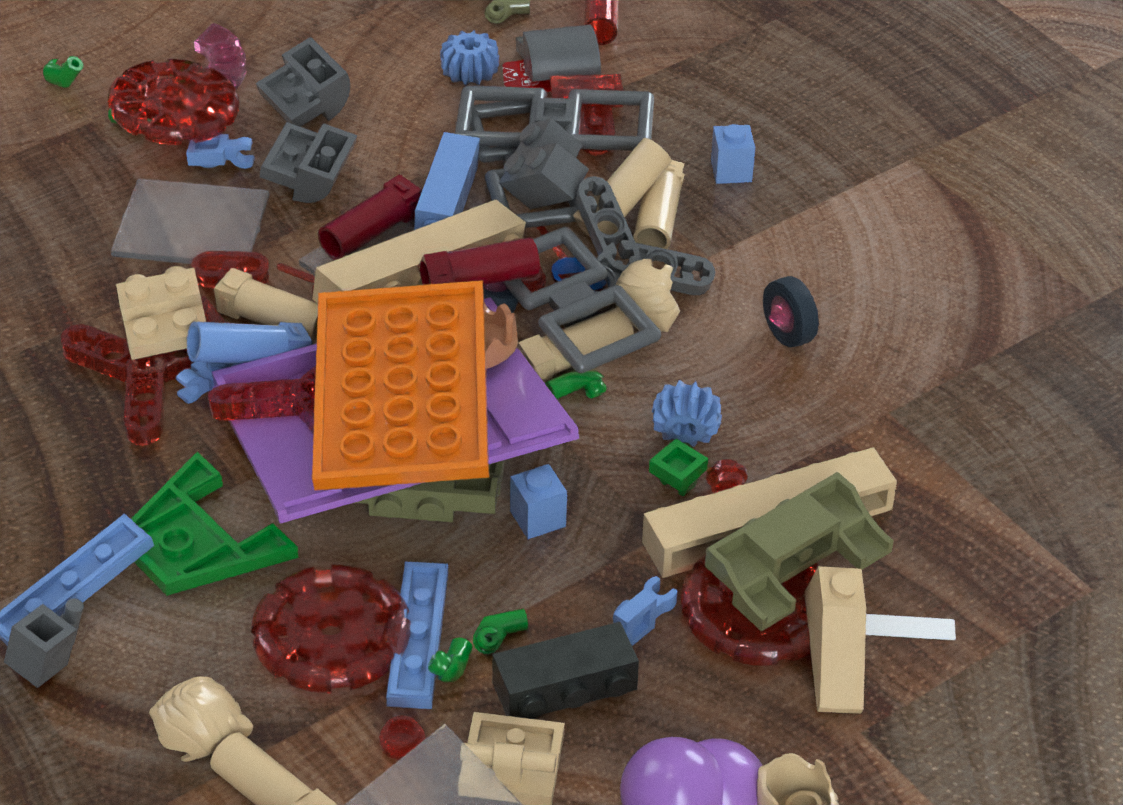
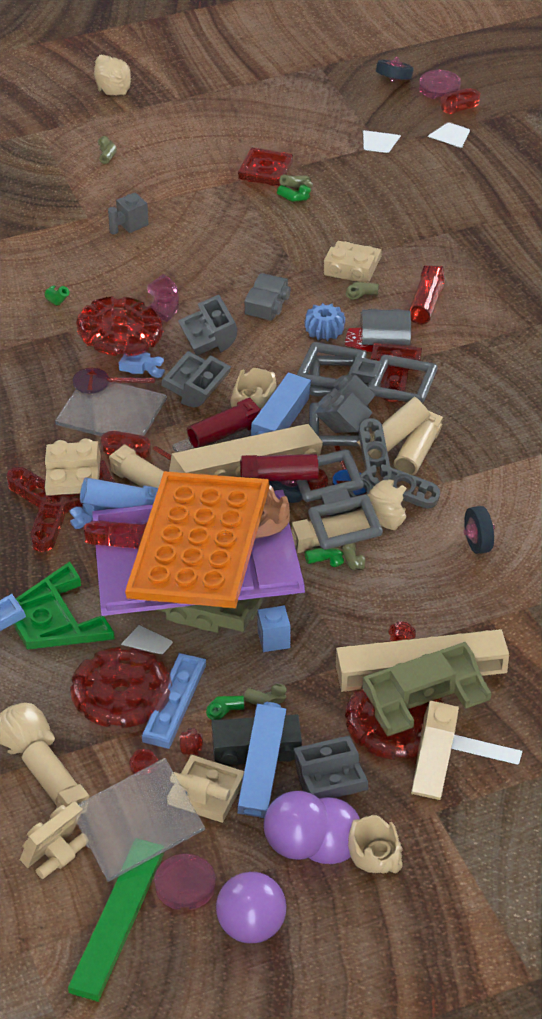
camera: 15 degrees right, 0 degrees up
(157, 184) = (95, 380): none -> piece
(351, 551) = (147, 640): none -> white sticker
(375, 34) = (267, 296): none -> dark grey brick
(399, 154) = (256, 384): none -> tan hair
(451, 665) = (191, 721): green arm -> none
(466, 693) = (191, 742): none -> clear red plate
(560, 607) = (276, 695): none -> olive arm
(590, 701) = (261, 760): none -> medium blue brick
(619, 385) = (353, 561): none -> olive arm
(641, 611) = (314, 712): medium blue plate -> none
(678, 466) = (371, 621): green tile -> none
(687, 413) = (387, 587): medium blue gear -> none
(691, 695) = (330, 768): none -> dark grey brick
(732, 154) = (479, 415): medium blue brick -> none

